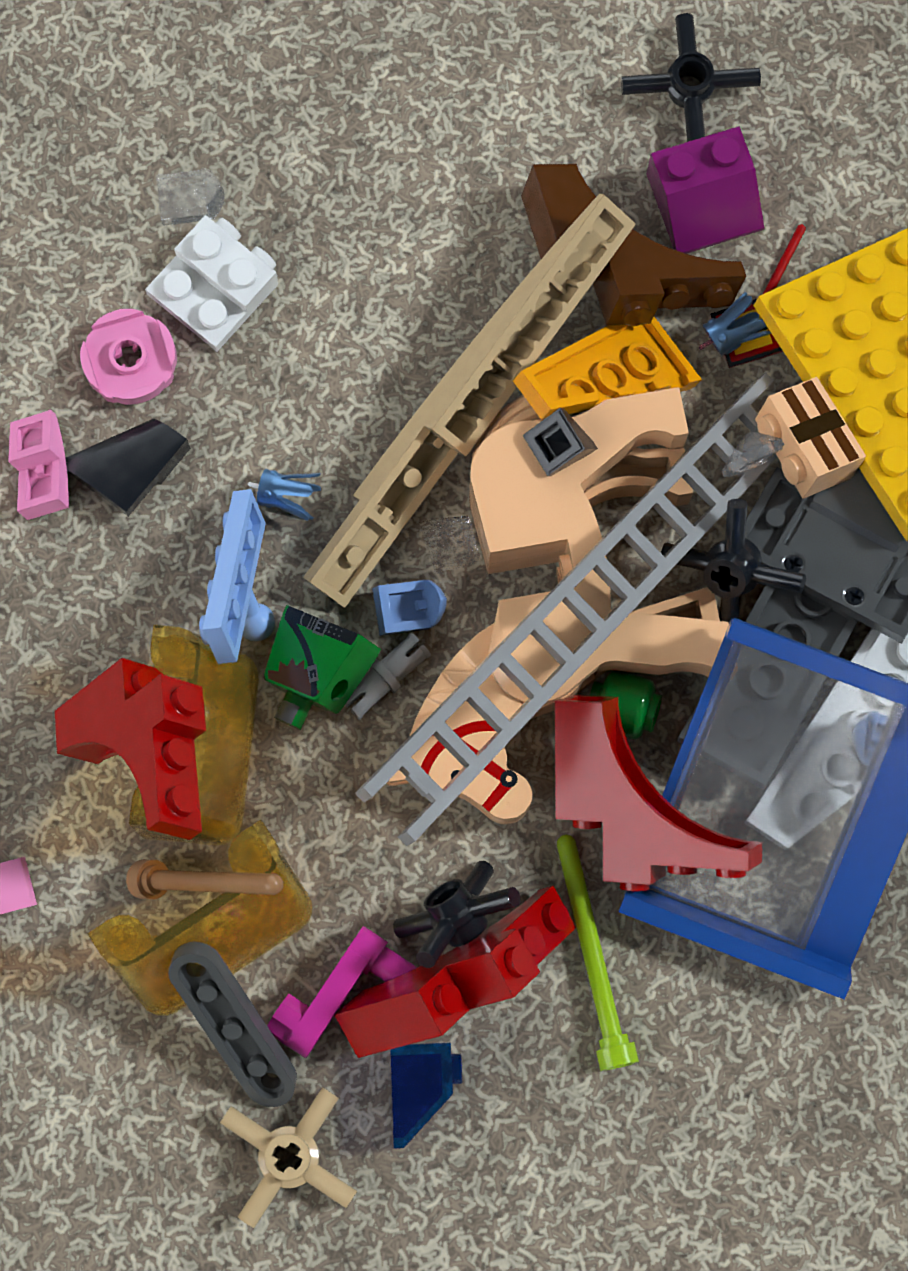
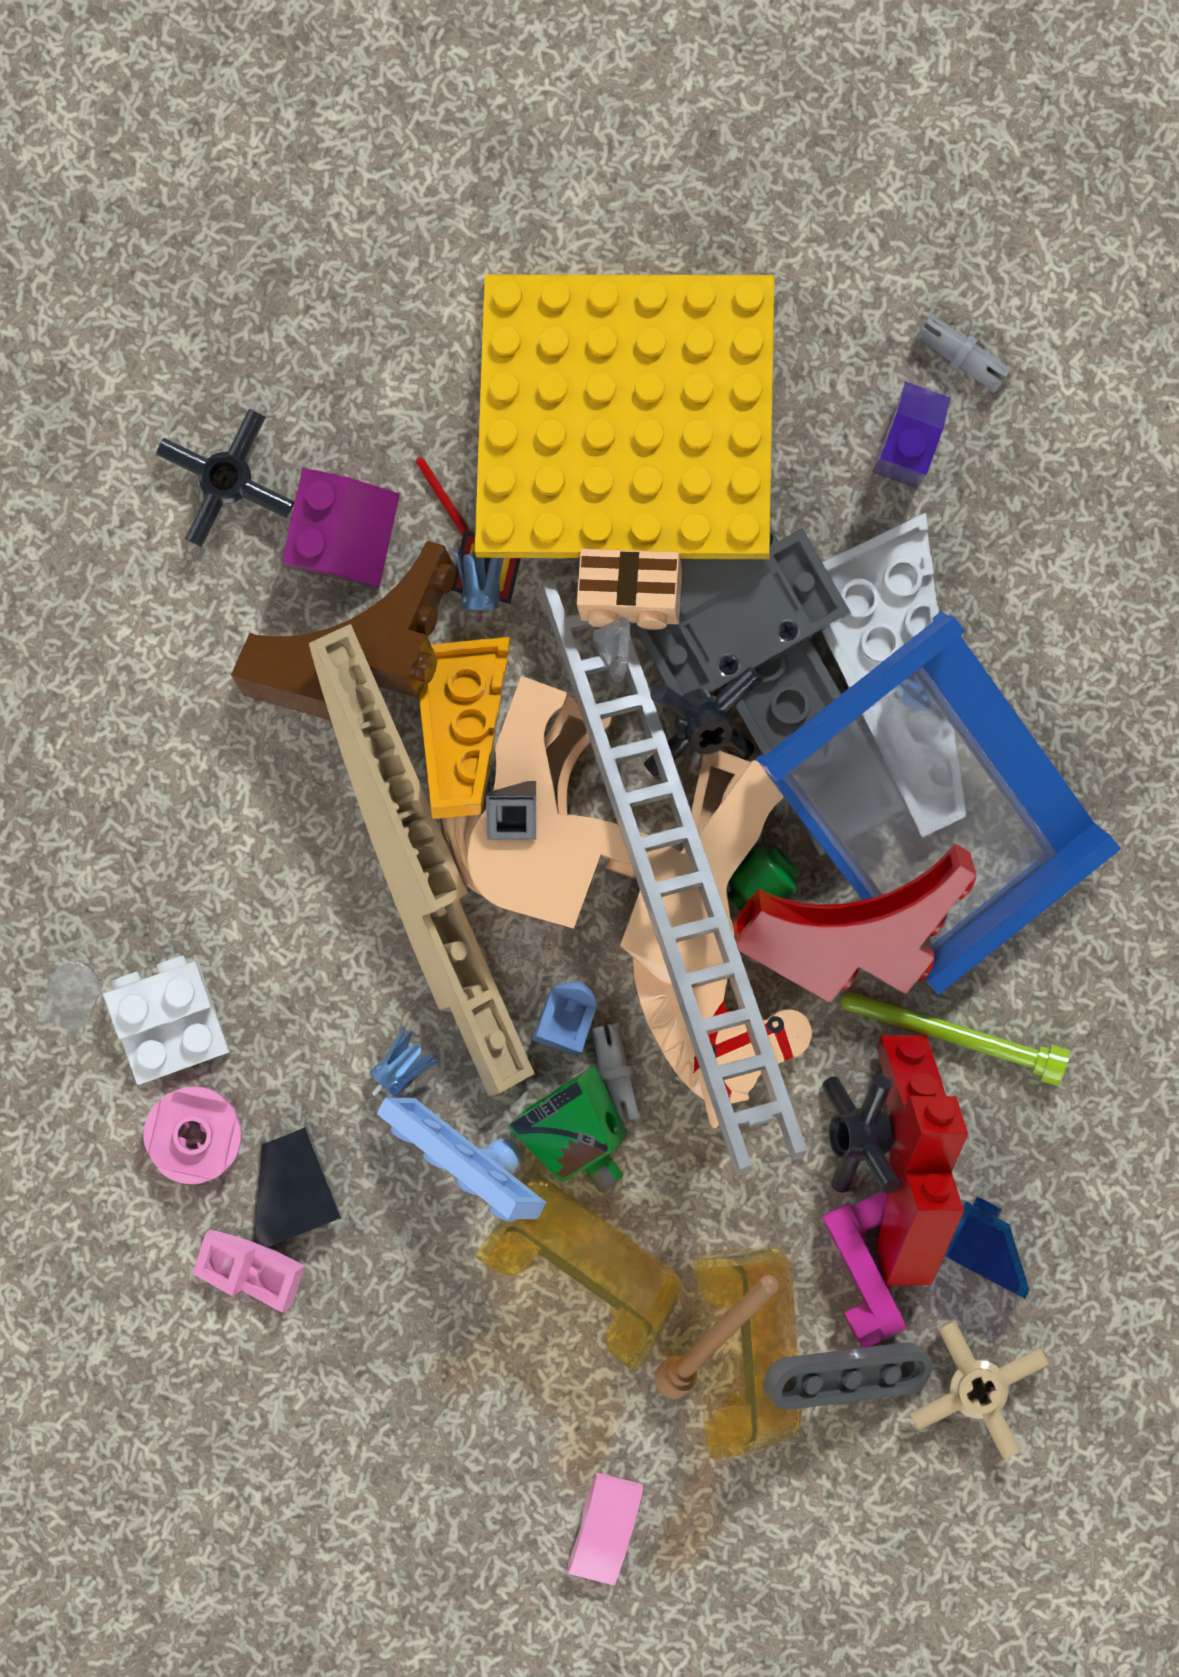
camera: 60 degrees left, 10 degrees up
(149, 724) = (565, 1311): red arch -> none

